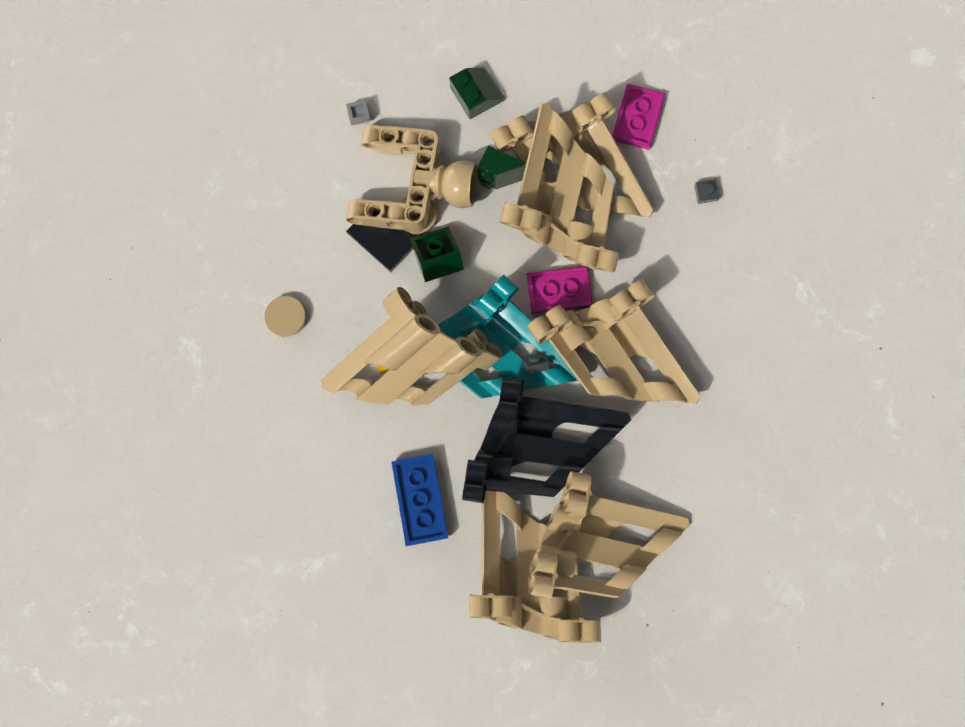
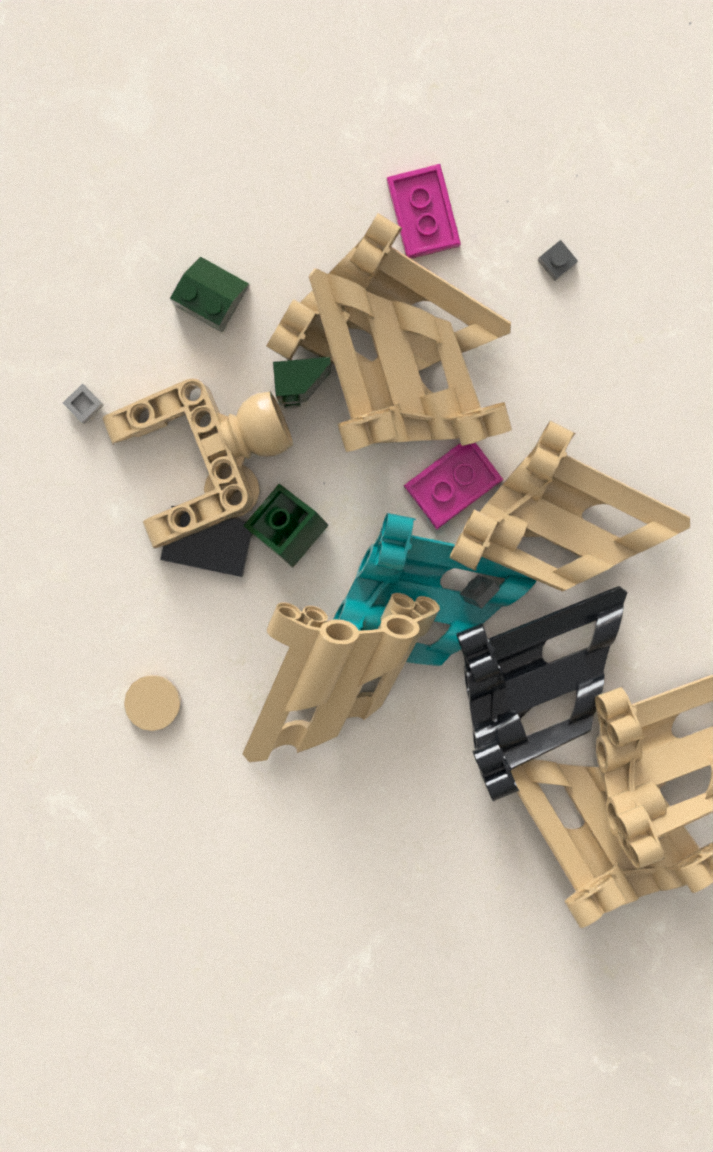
camera: 30 degrees left, 10 degrees up
(419, 500) = (438, 821): blue plate -> none

